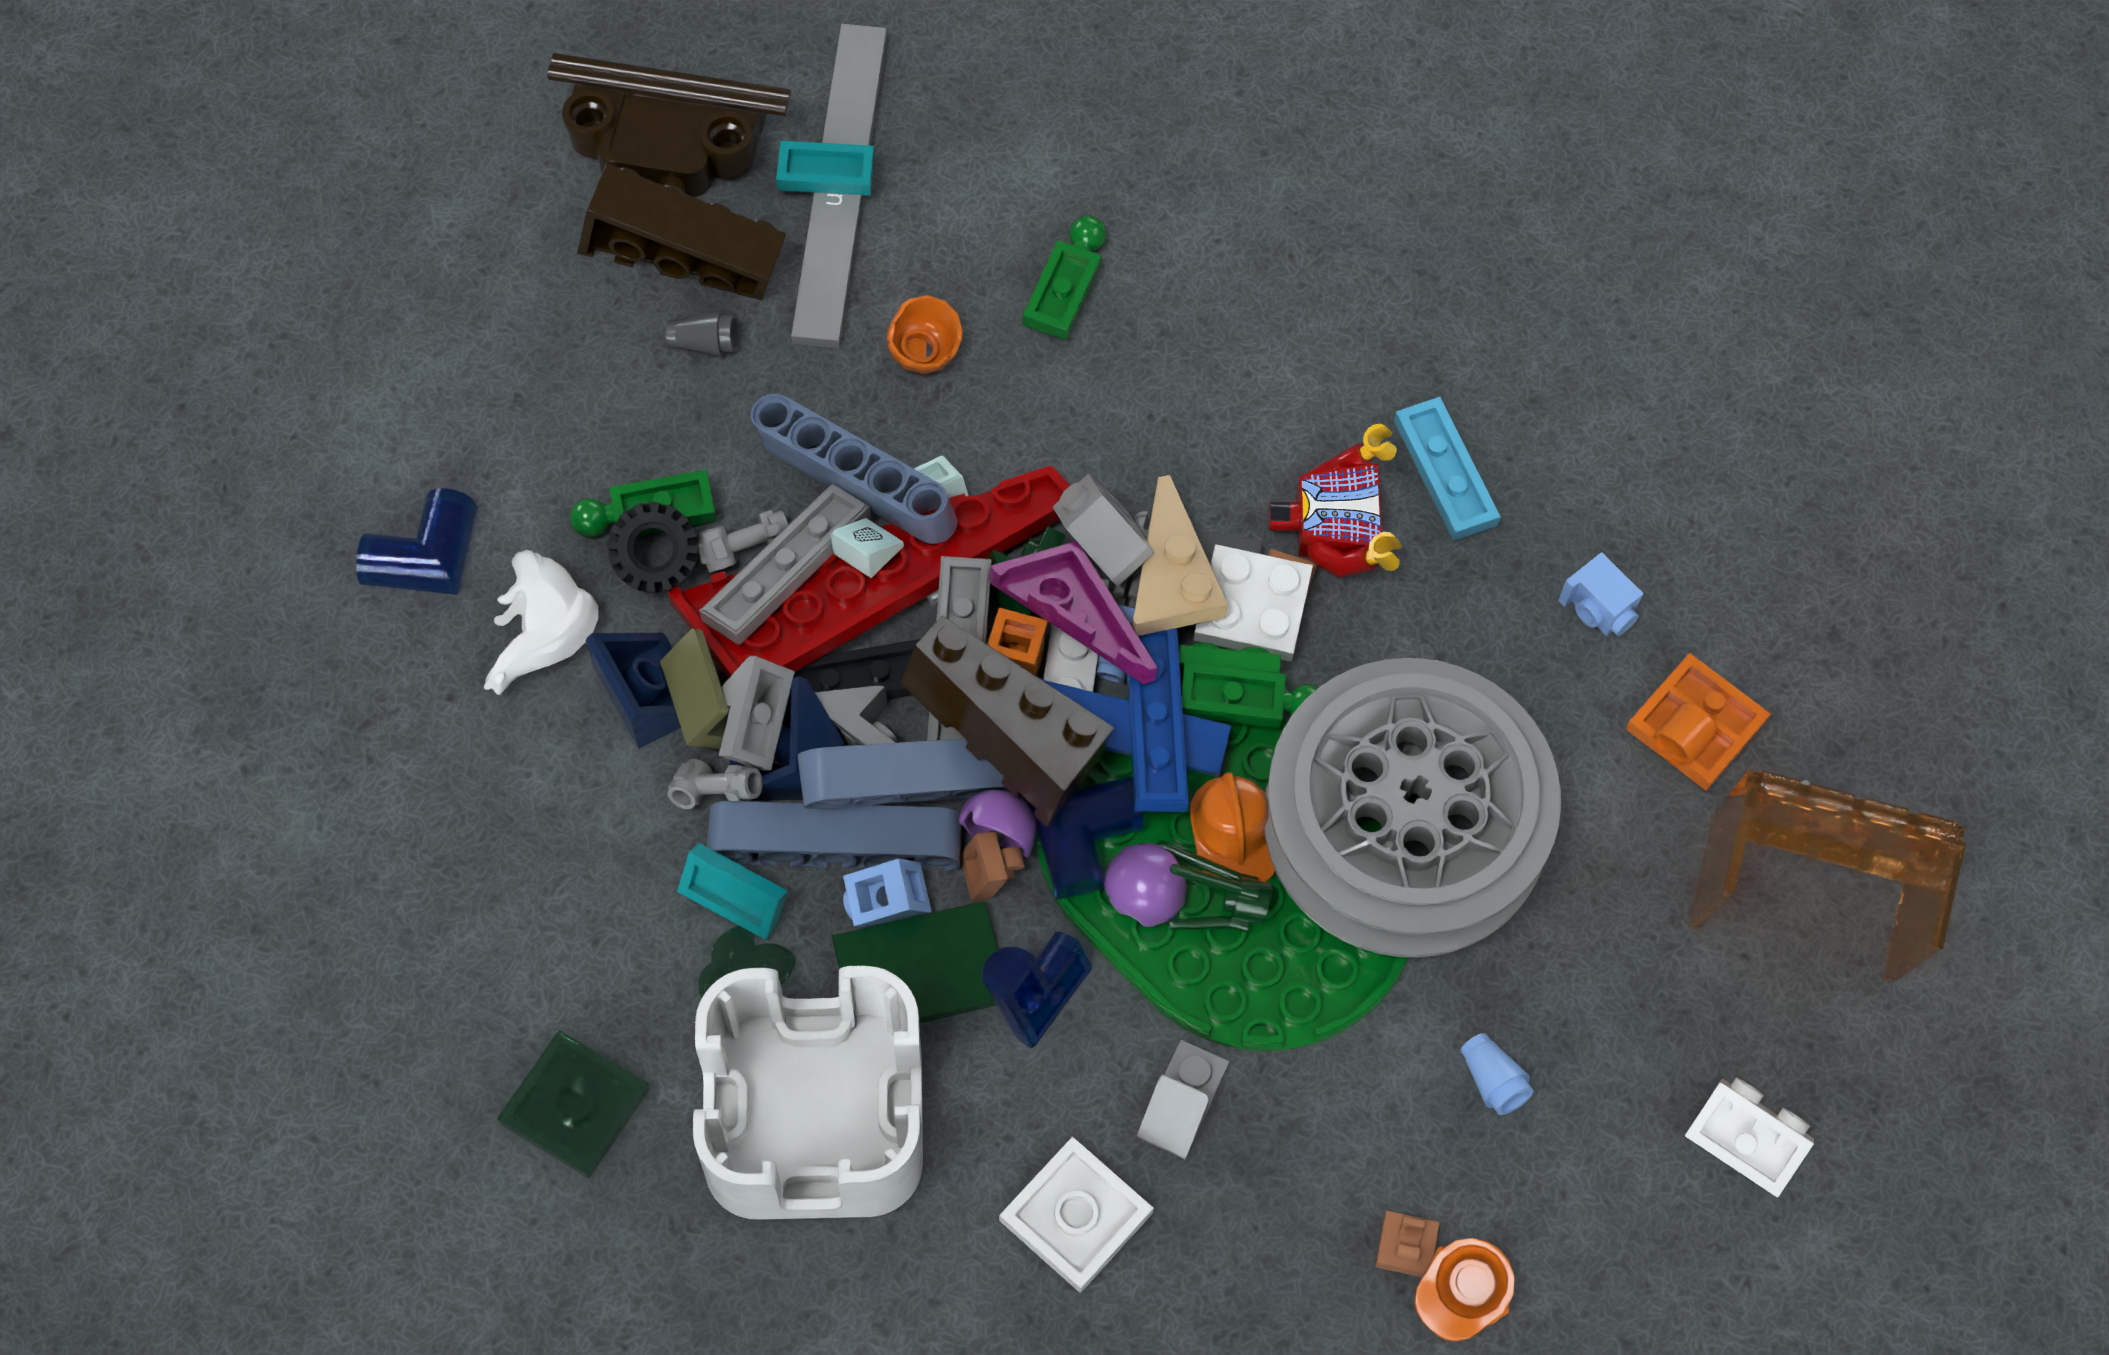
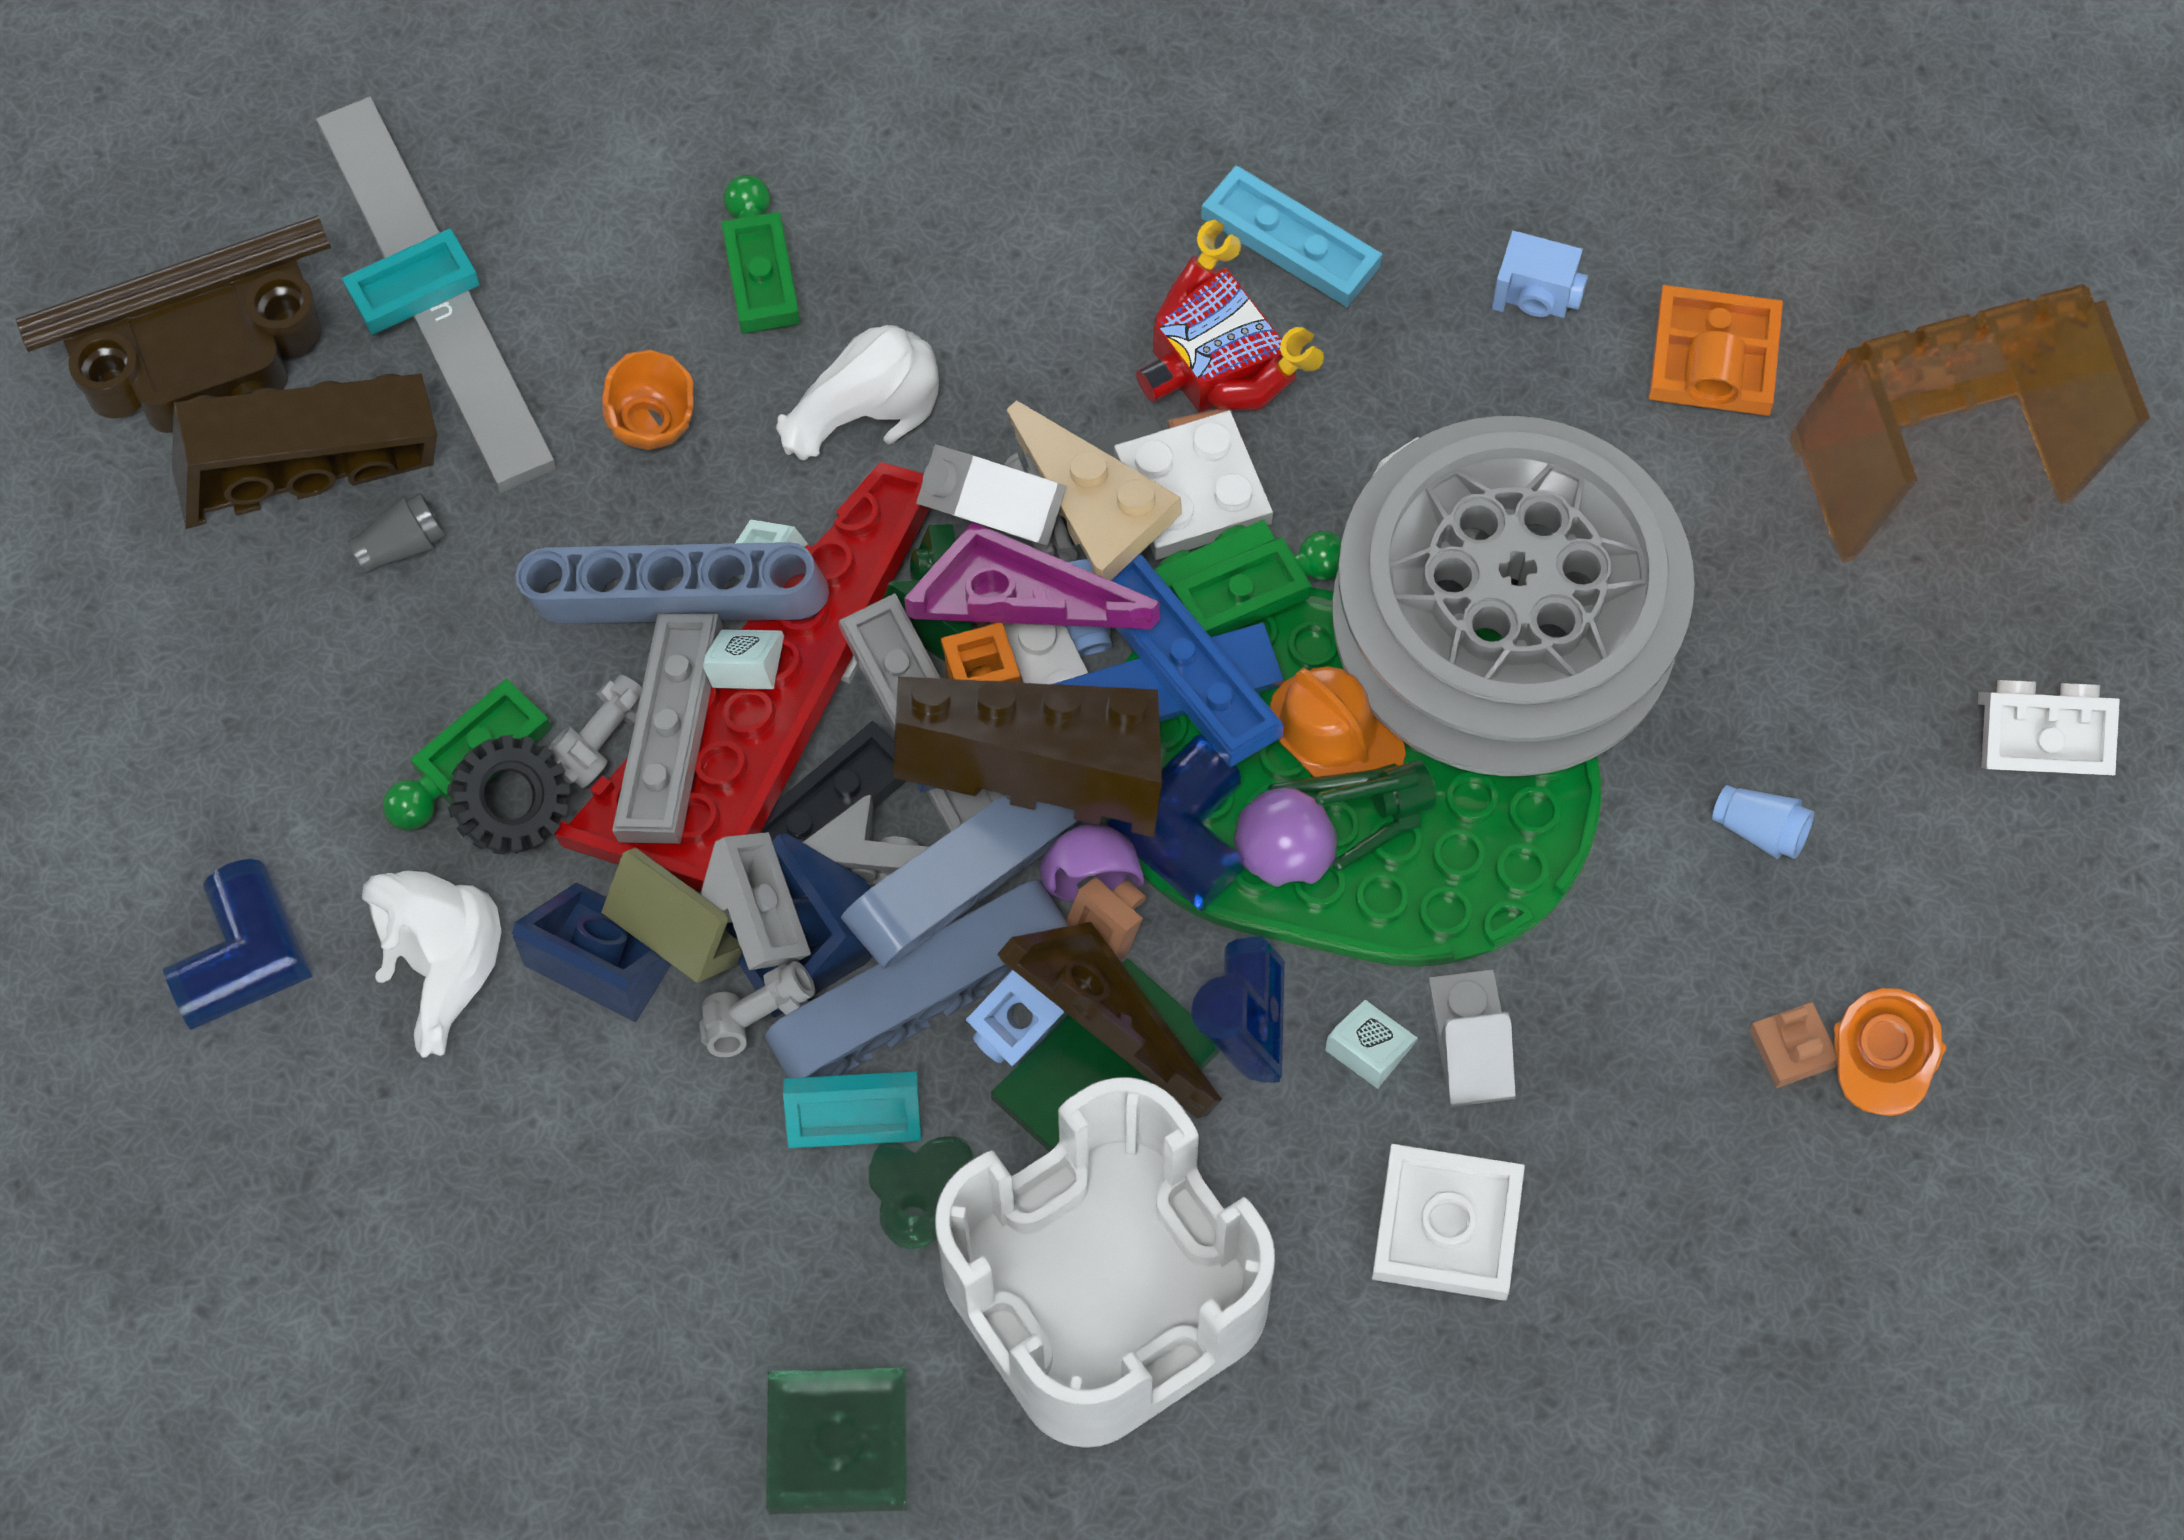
camera: 30 degrees left, 0 degrees up
(941, 908) = (1095, 989): none -> dark brown wing
(1083, 403) = (877, 376): none -> white piece
(1111, 1059) = (1369, 1043): none -> light aqua slope

